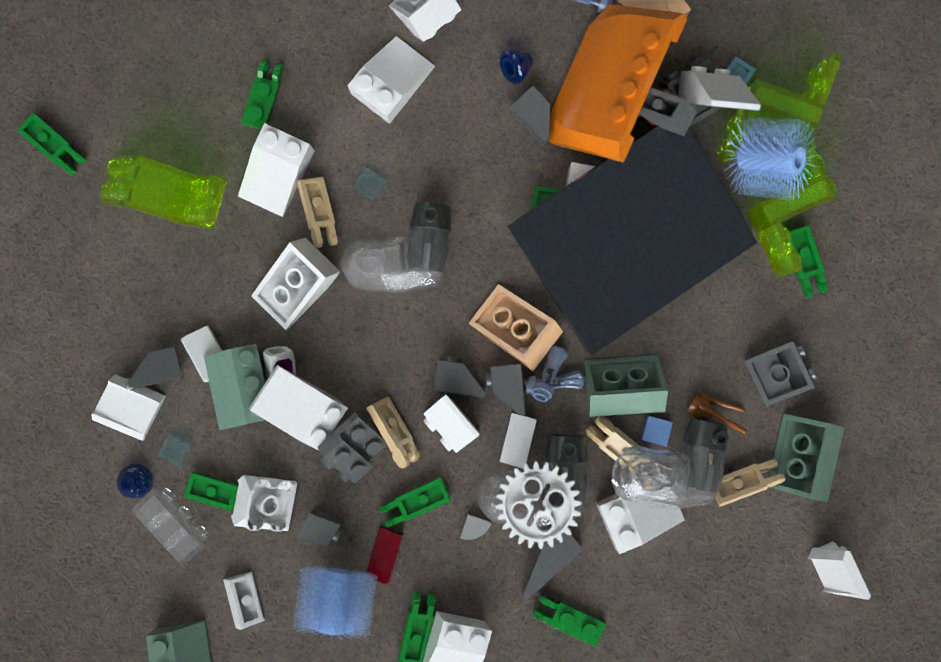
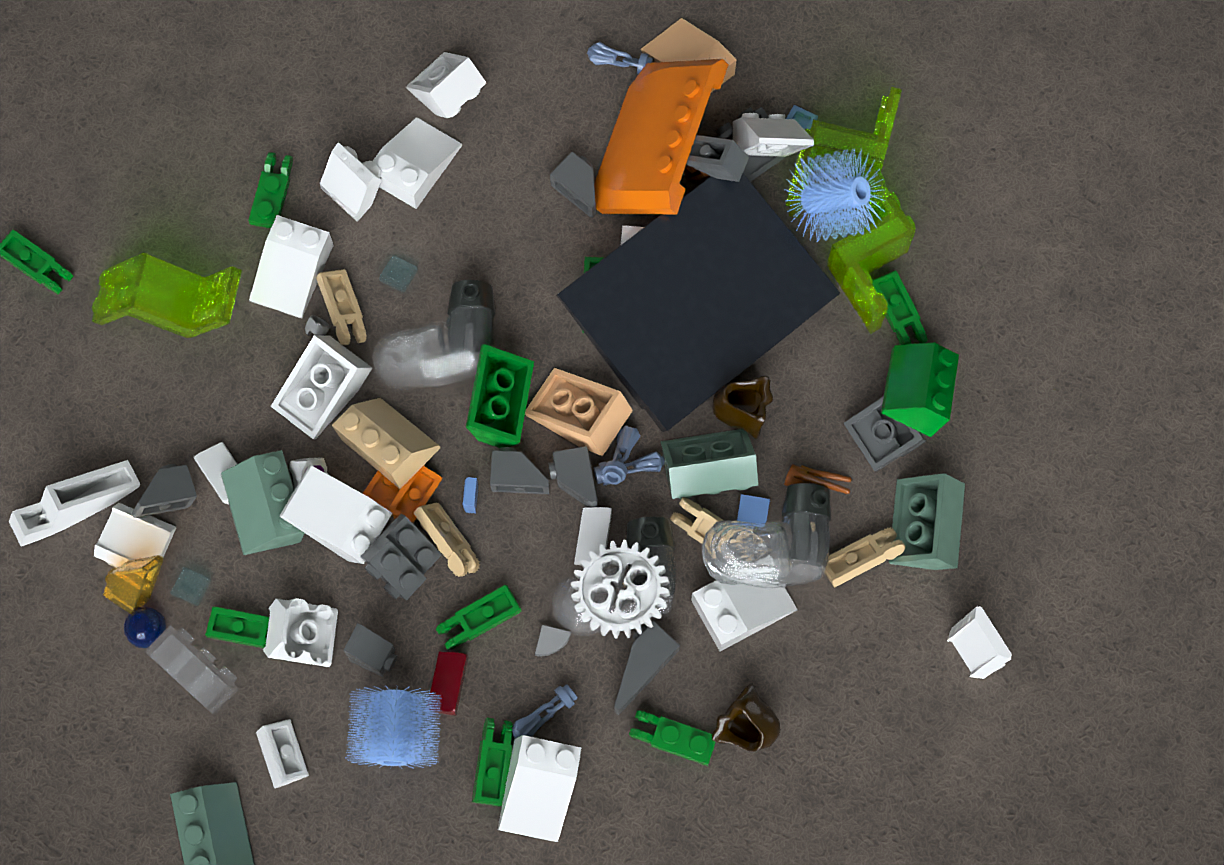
camera: 10 degrees left, 15 degrees down
(77, 368) = (73, 501): none -> white slope
(123, 447) = (133, 582): none -> clear yellow slope
(295, 227) = (316, 326): none -> light grey hinge
(332, 95) = (350, 181): none -> white slope
(347, 339) = (385, 439): none -> tan slope
(358, 380) = (409, 497): none -> orange slope
(416, 395) = (470, 495): none -> medium blue tile
(448, 599) = (531, 723): none -> sand blue piece
(449, 312) = (499, 397): none -> green slope
(451, 424) = (513, 519): white slope -> none
(515, 65) = (551, 134): clear blue brick -> none
(632, 620) = (748, 723): none -> dark brown piece
(657, 339) = (744, 404): none -> dark brown piece
(820, 339) = (920, 386): none -> green slope

